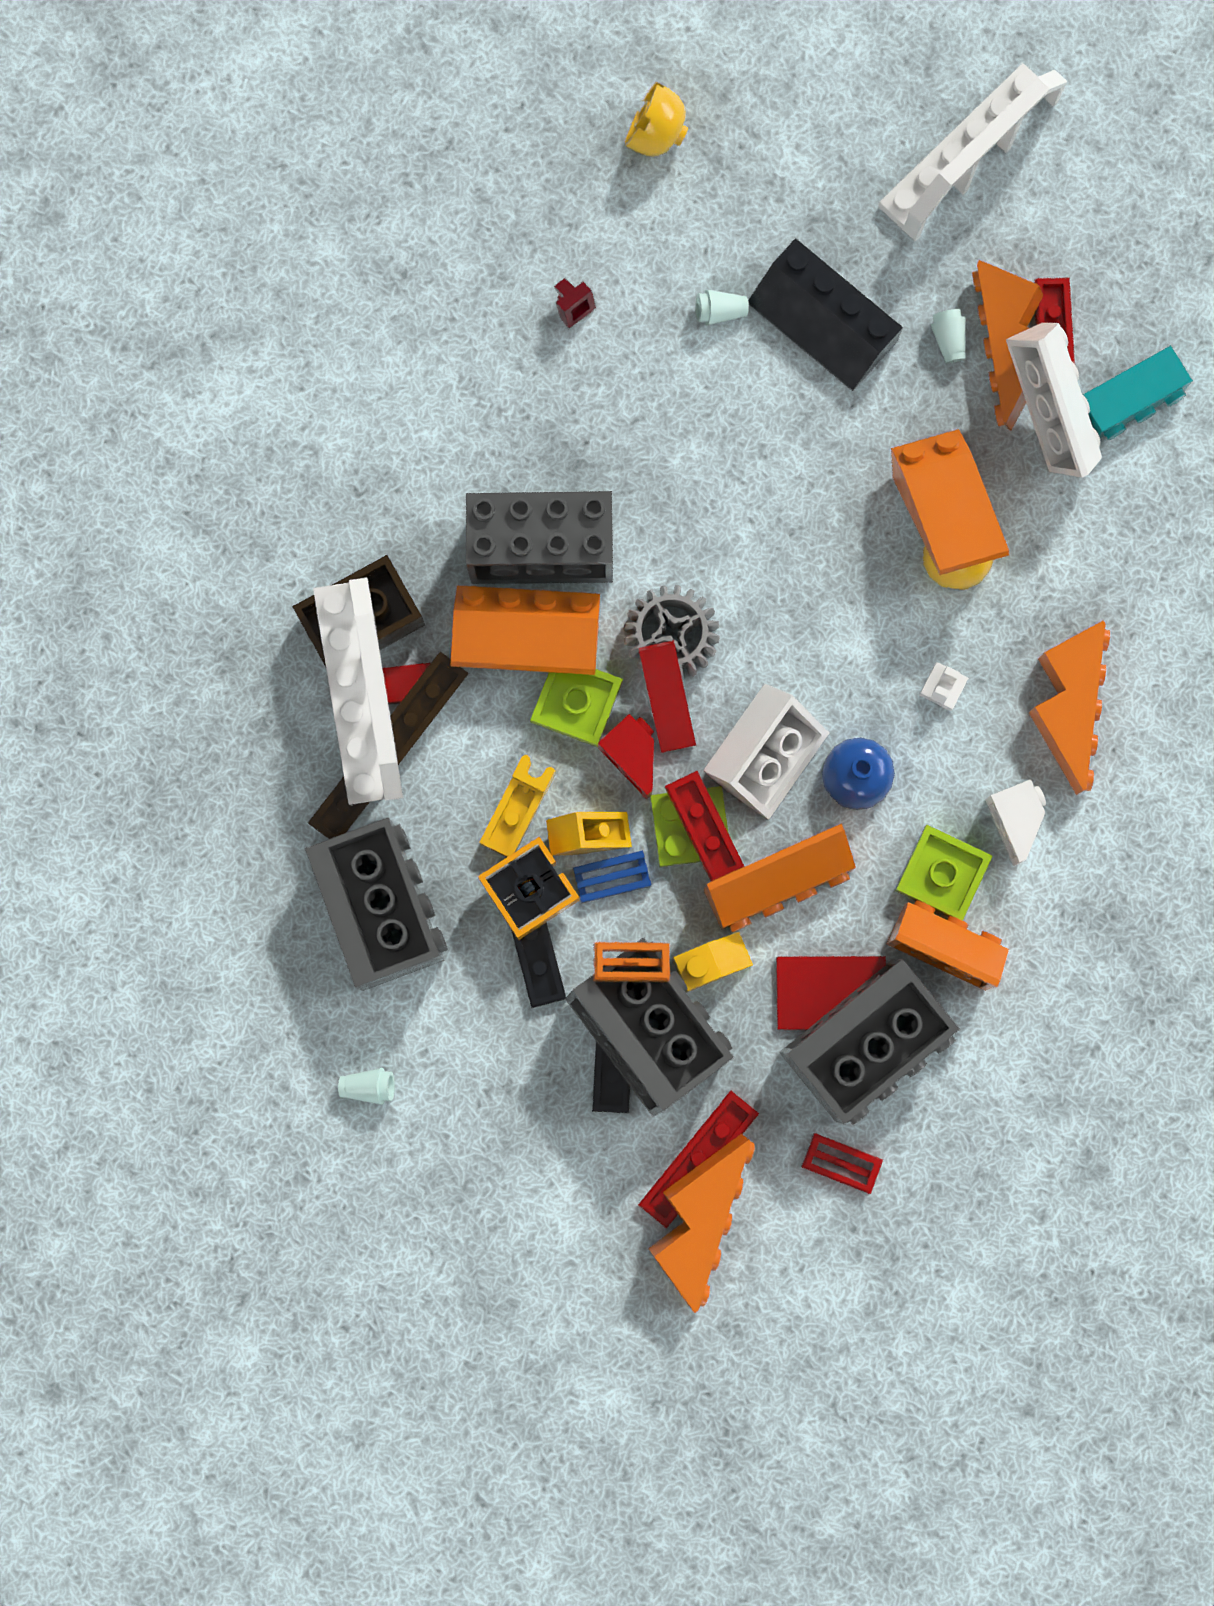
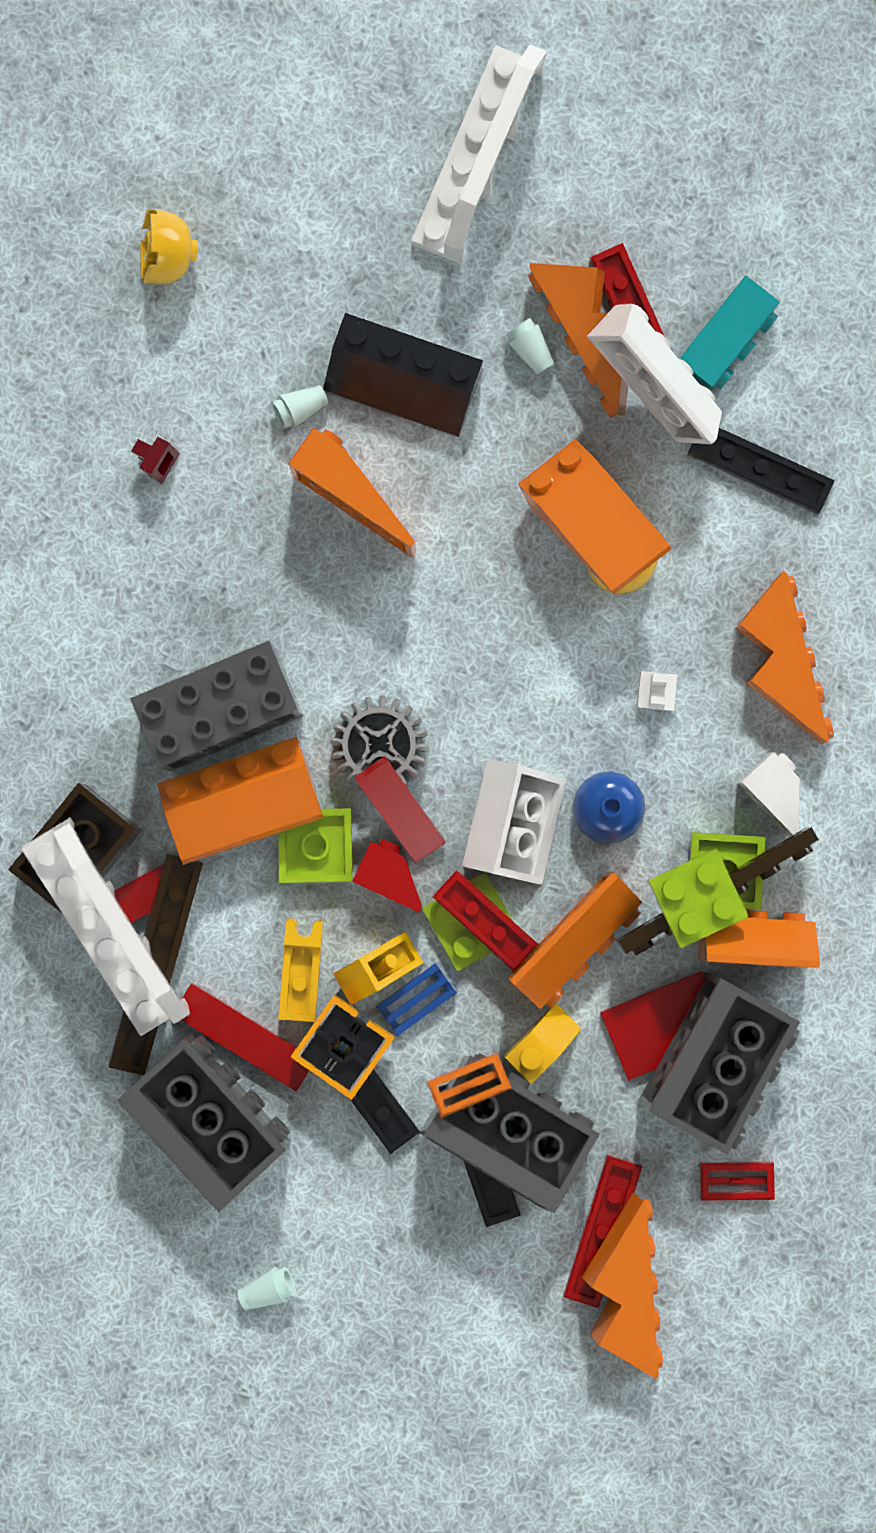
camera: 20 degrees left, 5 degrees up
(440, 847) = (243, 1036): none -> red tile
(728, 378) = (332, 473): none -> orange slope
(909, 879) = (697, 898): none -> lime plate
(945, 883) = (765, 865): none -> dark brown plate
(1119, 526) = (765, 470): none -> black tile

